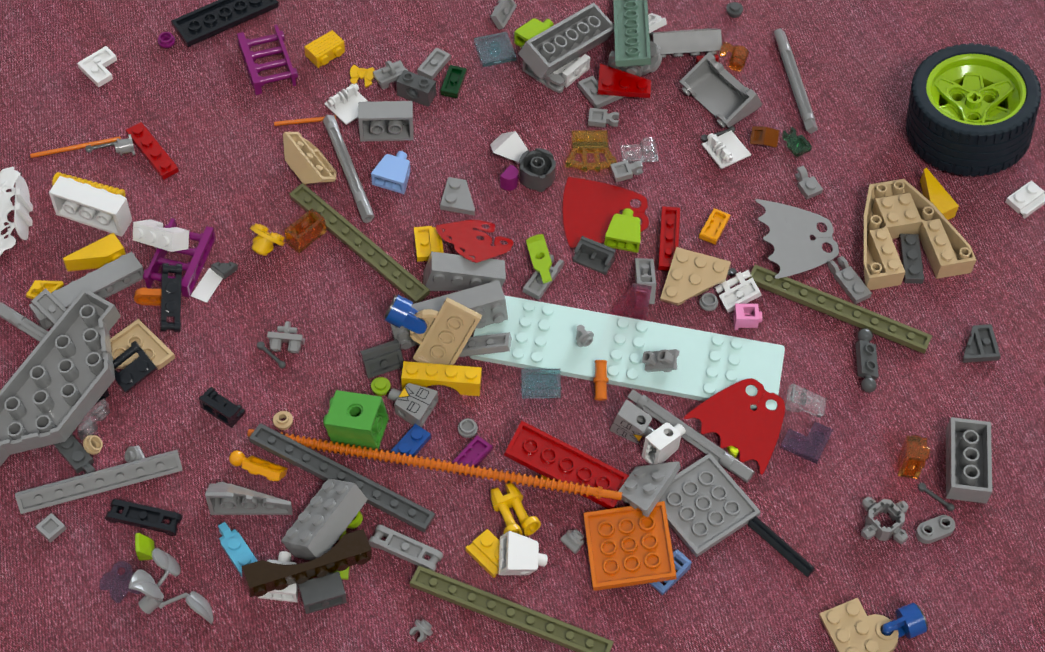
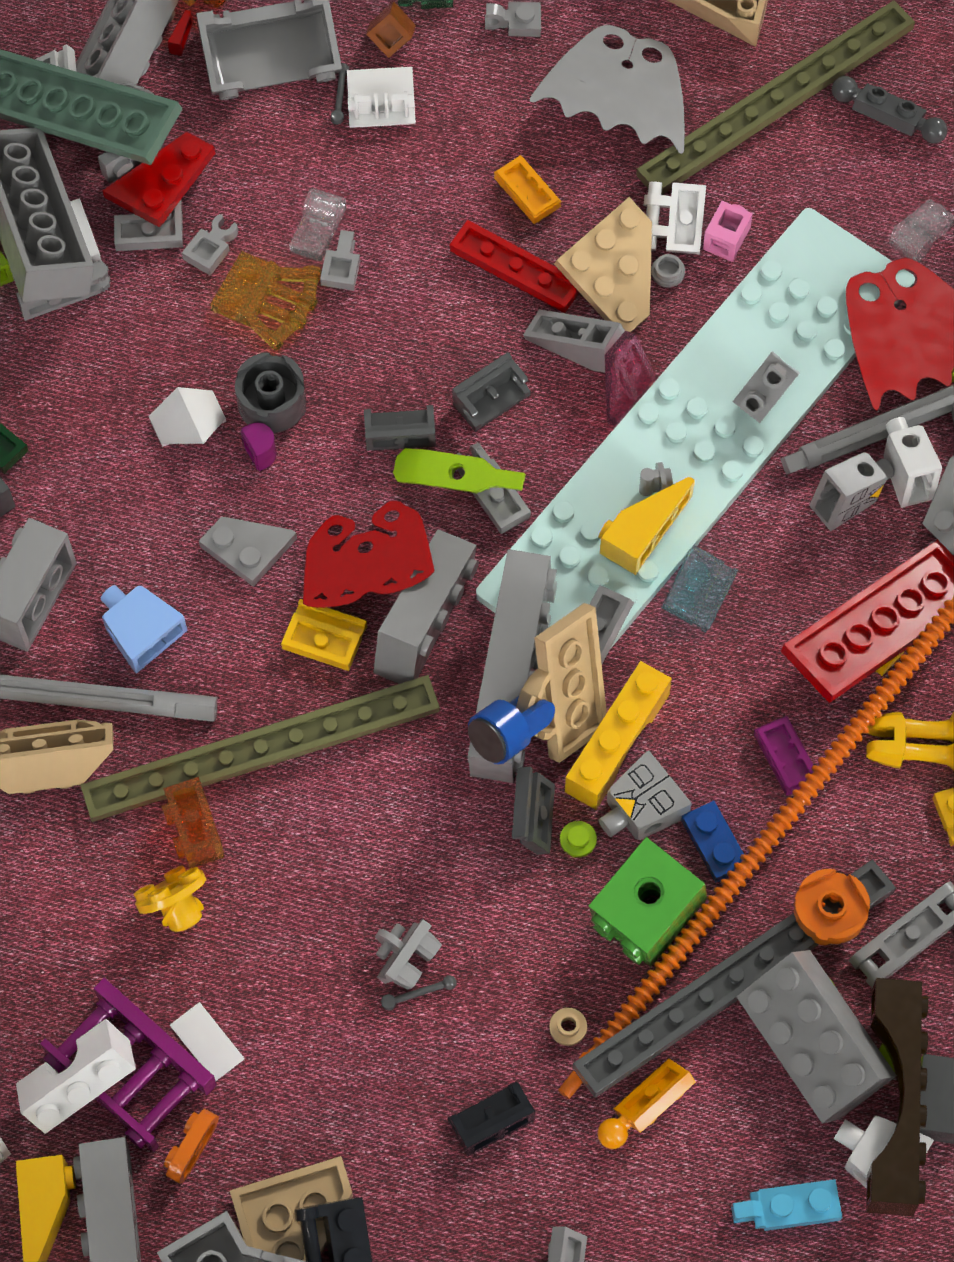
camera: 60 degrees left, 10 degrees up
(170, 297) = (223, 1113): black plate -> none
(224, 269) = (189, 998): dark grey tile -> none
(237, 500) = (694, 1170): light grey wedge -> none
(398, 511) = (822, 925): none -> orange plate
(467, 428) = (728, 739): light grey plate -> none
(552, 228) = (399, 429): none -> dark grey hinge
(555, 341) = (642, 526): none -> yellow slope
(591, 206) = (392, 354): red piece -> none
(600, 380) = (743, 496): orange pin -> none
(624, 232) = (469, 324): lime torso -> none
(849, 280) = (728, 57): light grey hinge -> none

